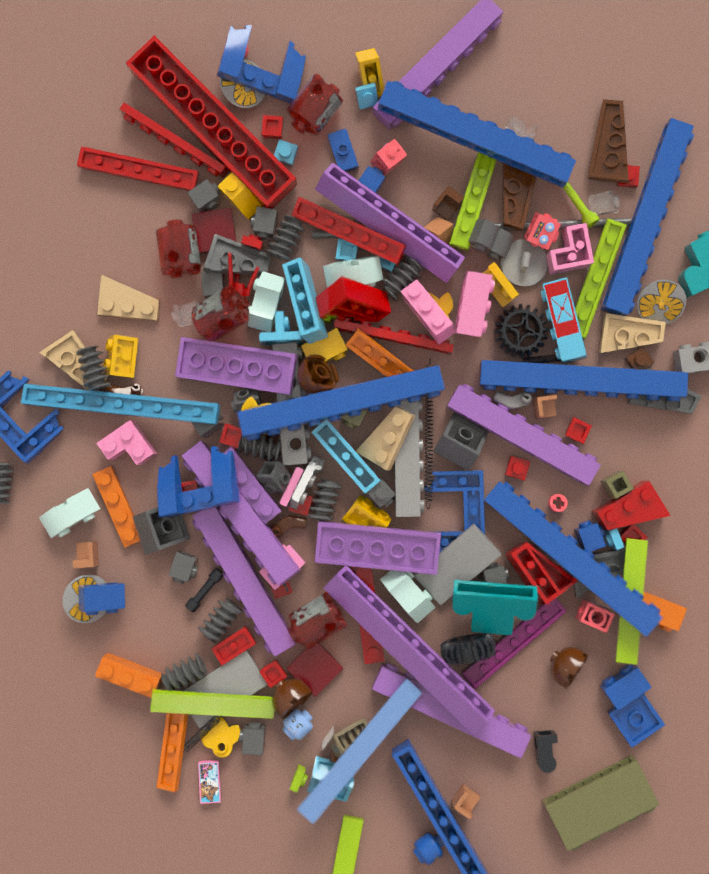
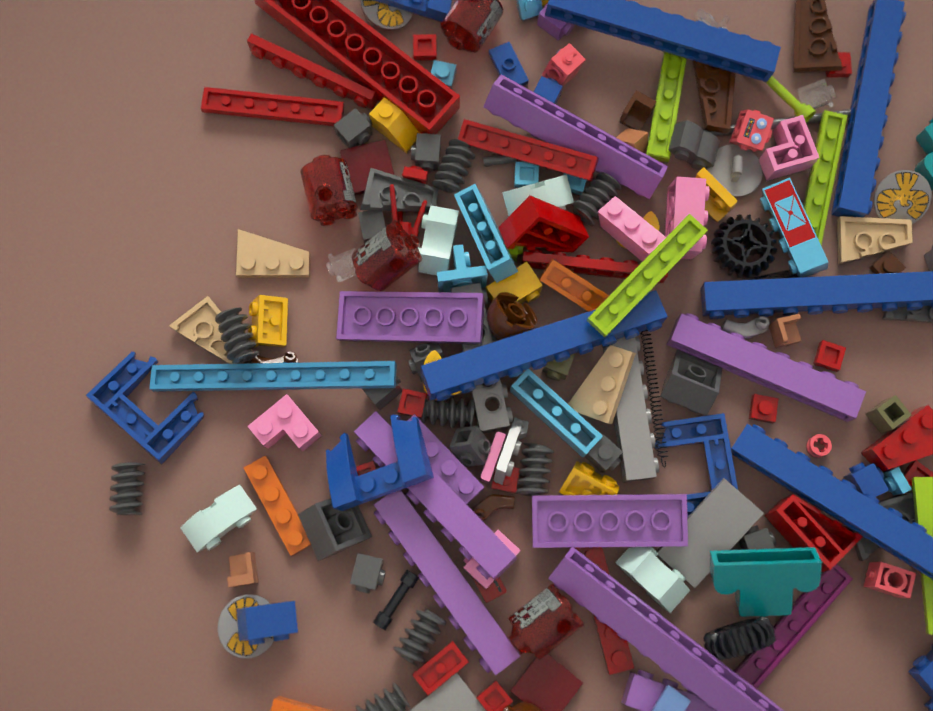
camera: 10 degrees left, 10 degrees down
(431, 354) = (646, 275): none -> lime plate
(567, 665) = (865, 647): reddish brown cylinder -> none

